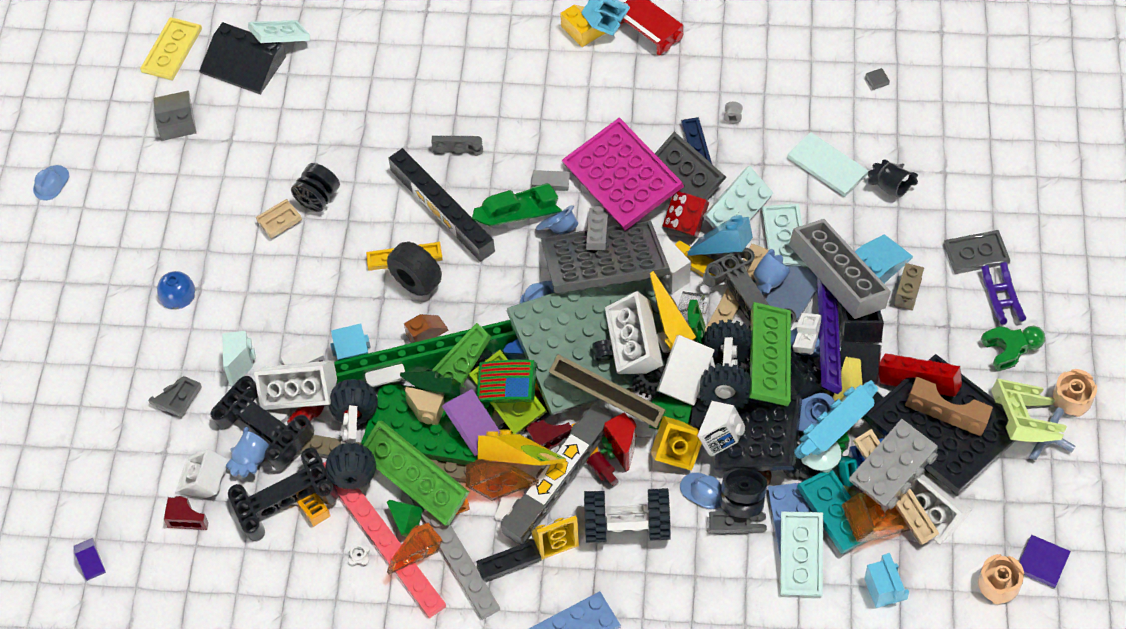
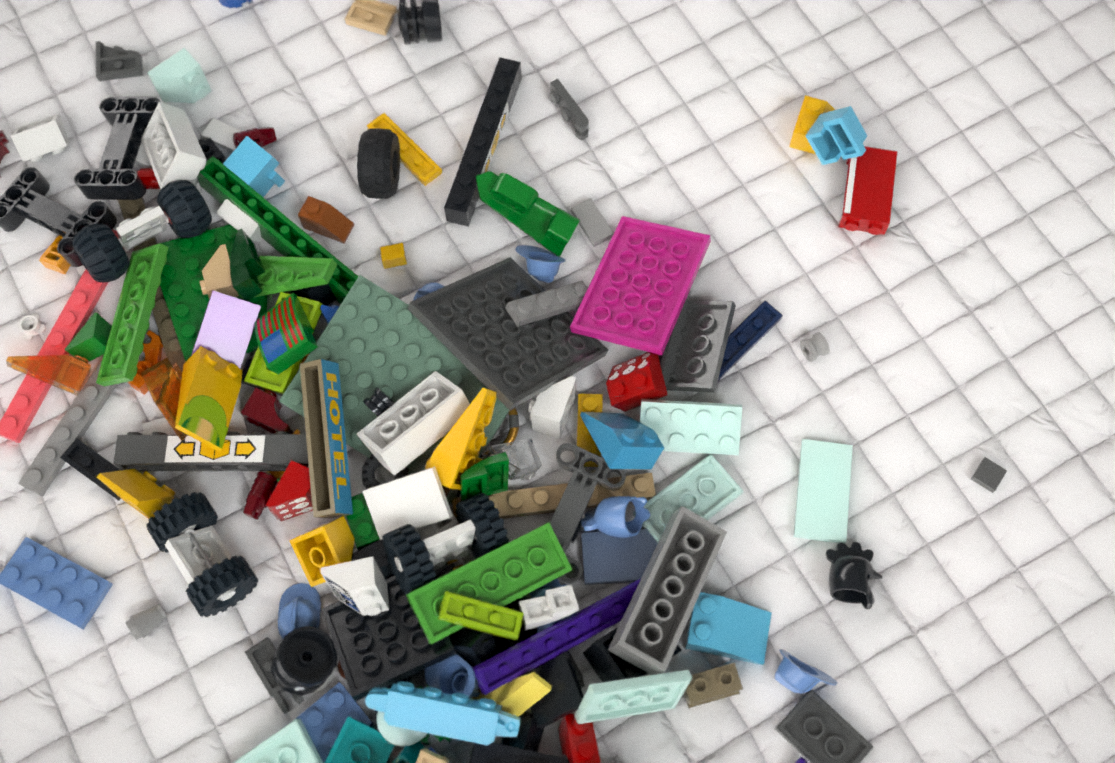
camera: 55 degrees right, 10 degrees up
(247, 454) = (79, 157): medium blue piece -> none
(322, 339) = (261, 136): none -> dark red hinge
(483, 304) = (393, 255): none -> yellow slope
(645, 583) = (145, 621): none -> light grey cone
(790, 366) = (480, 615): none -> lime tile
(892, 321) = (632, 696): none -> light aqua tile
(932, 240) = (798, 675): none -> medium blue piece

